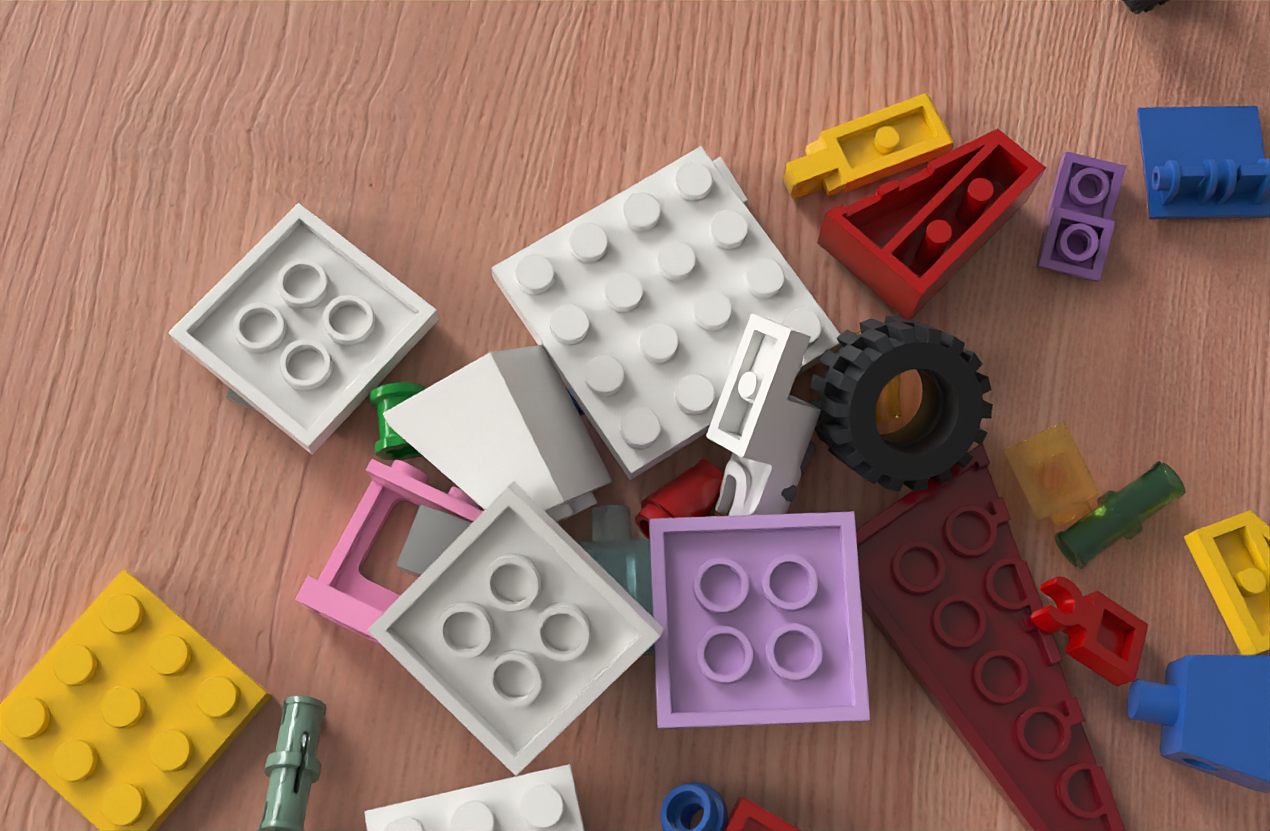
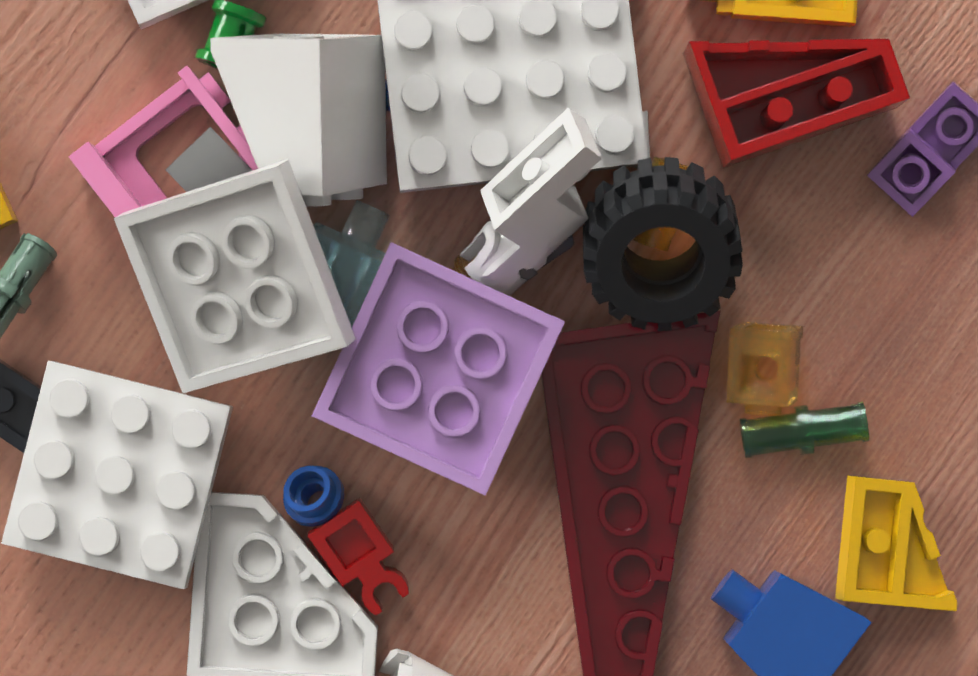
camera: 25 degrees right, 15 degrees up
(683, 497) = (437, 231): red cone -> none
(1098, 629) = (727, 516): red plate -> none

